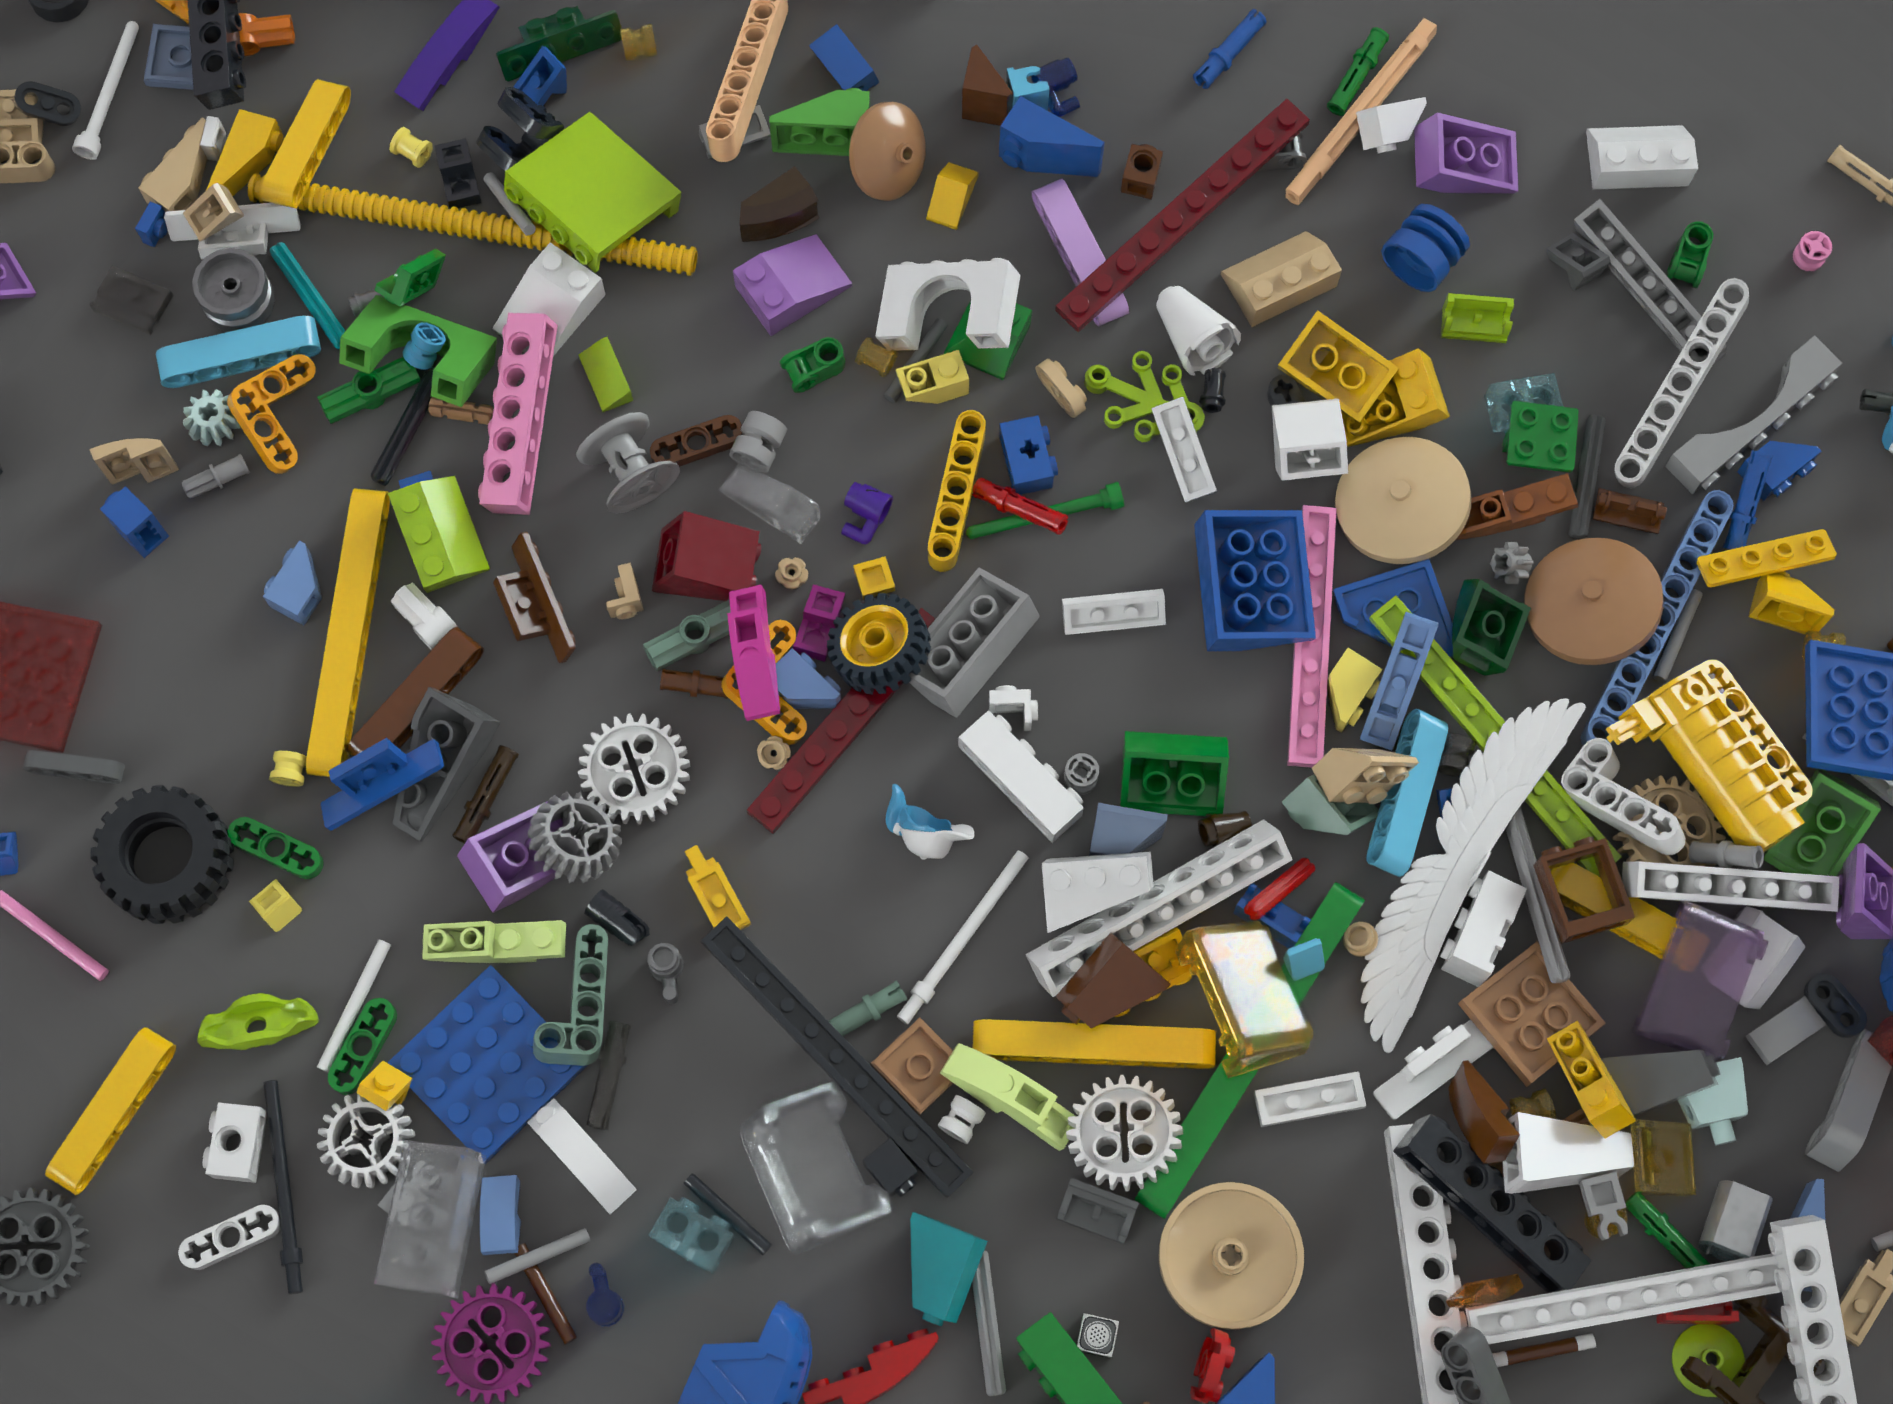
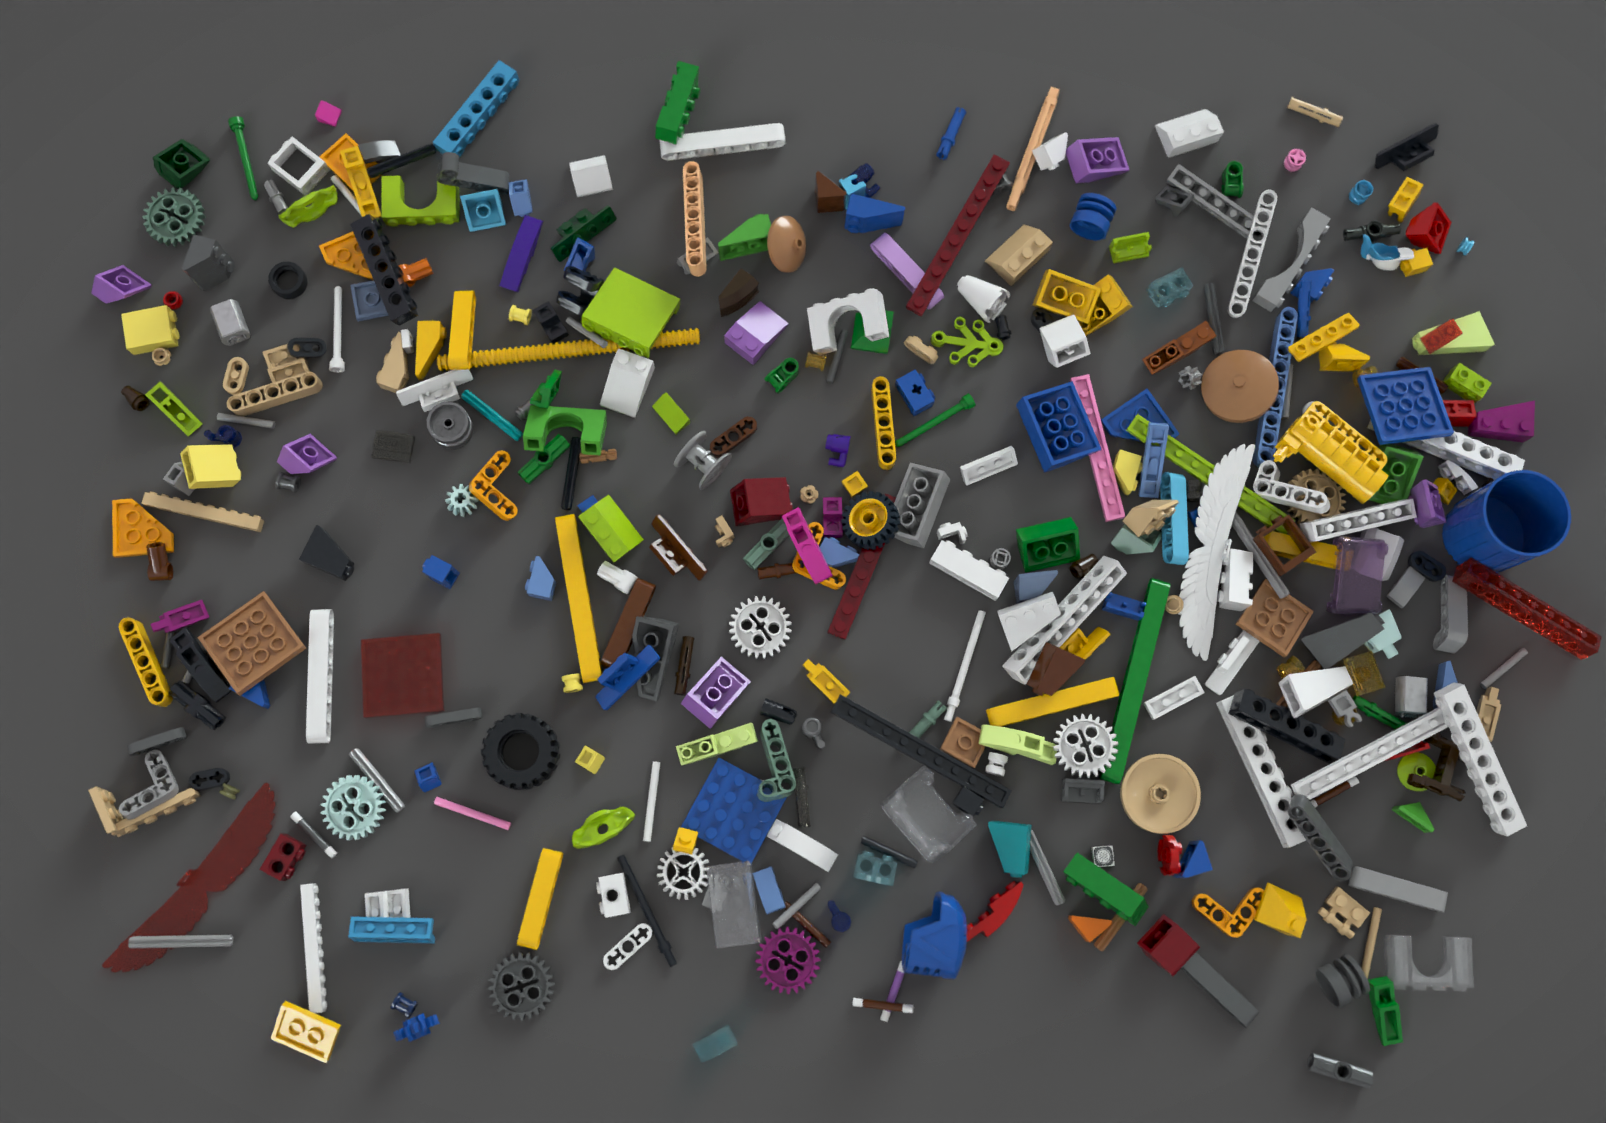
camera: 20 degrees left, 5 degrees up
(134, 456) = (435, 533): tan slope -> none
(152, 224) = (390, 400): blue plate -> none
(212, 212) = (424, 385): tan slope -> none
(215, 476) = (475, 532): light grey axle -> none
(237, 351) = (463, 458): medium azure beam -> none
(257, 829) = (593, 736): green beam -> none
(382, 1026) = (658, 815): green beam -> none
(424, 344) = (567, 426): dark azure wheel -> none
(530, 397) = (645, 494): bright pink brick -> none
(568, 846) = (738, 684): light grey gear -> none
(631, 43) = (626, 219): clear yellow wheel -> none
(759, 438) = (768, 424): light grey wheel -> none
(764, 753) = (832, 591): tan plate -> none
(773, 502) = (786, 458): clear slope -> none
(843, 60) = (744, 199): blue hinge -> none
(921, 830) = (926, 616): hair -> none
(935, 379) = (852, 364): light yellow slope -> none
(951, 195) = (826, 258): yellow slope -> none
(1009, 501) = (912, 420): red pin -> none
(1137, 182) = (923, 222): reddish brown brick -> none
(1184, 449) = (998, 365): white plate -> none
(1246, 994) = (1127, 653): clear yellow windscreen -> none
(1279, 889) = (1124, 591): red axle -> none
(1304, 959) = (1151, 625): medium azure slope -> none
(1364, 61) = (1019, 147): green pin -> none
(1403, 500) = (1123, 360): tan dish -> none
(1481, 1115) = (1267, 680): reddish brown slope -> none
(1485, 1291) = (1298, 772): clear orange slope -> none
(1486, 627) = (1188, 417): dark green slope -> none
(1541, 436) = (1186, 304): green bracket -> none
(1591, 1080) = (1318, 645): yellow slope -> none
(1629, 511) = (1242, 331): reddish brown hinge -> none
(1726, 854) = (1352, 504): light grey pin -> none

